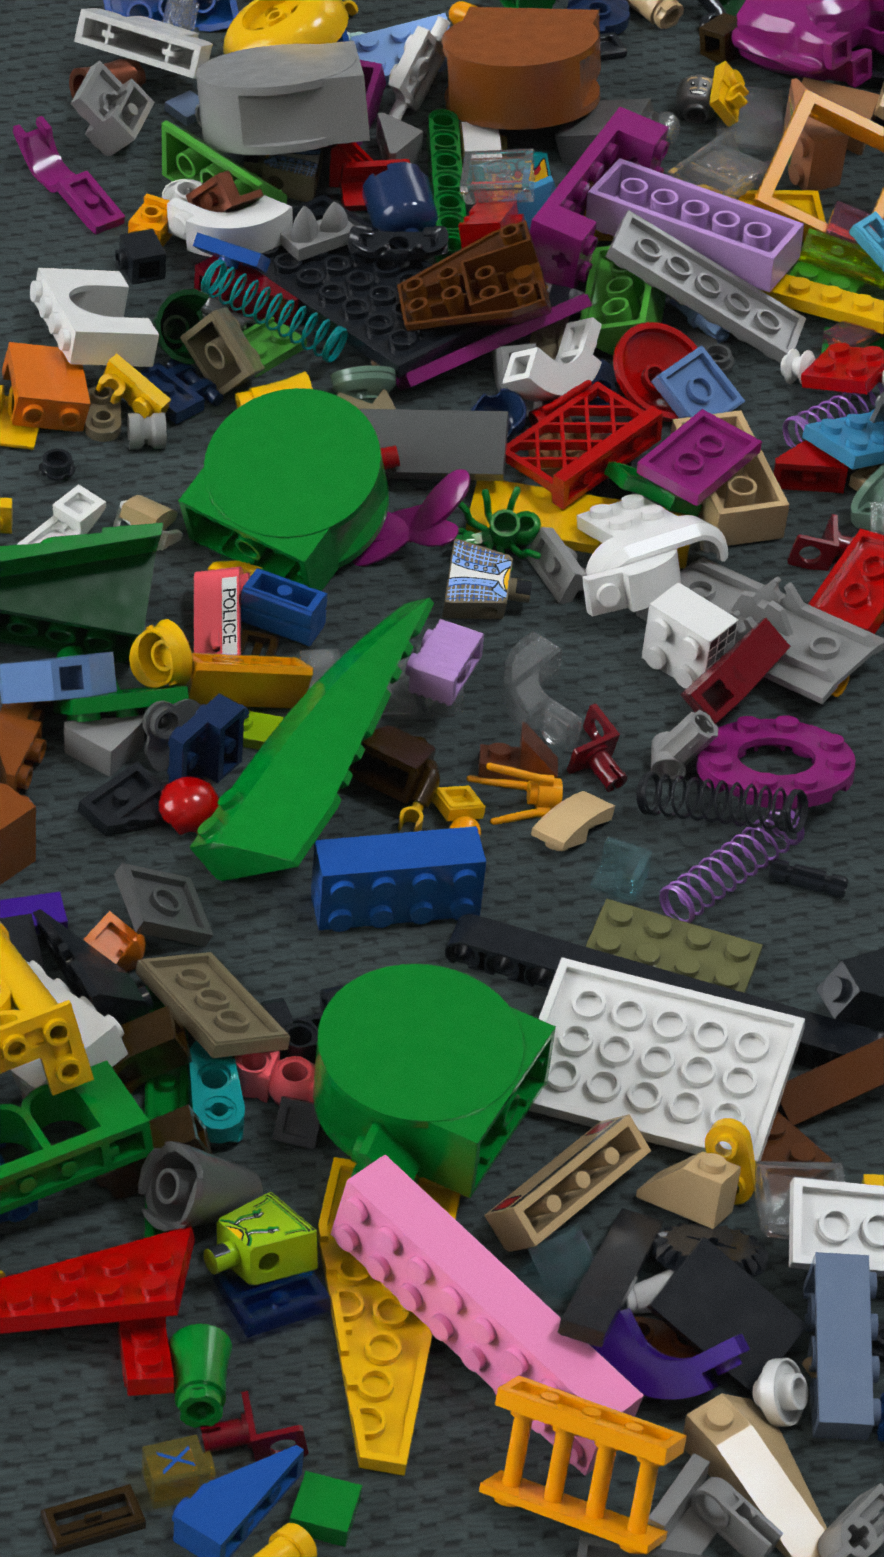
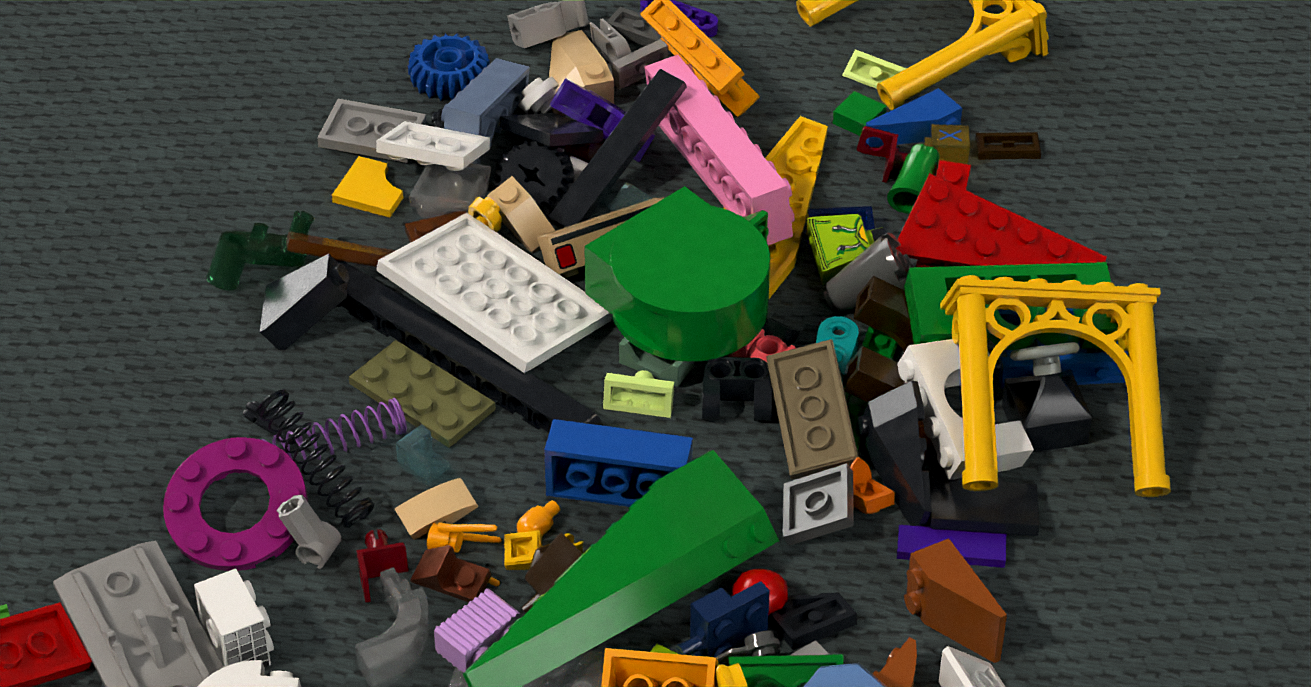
camera: 155 degrees left, 0 degrees up
(736, 671) = (251, 562): dark red slope -> none

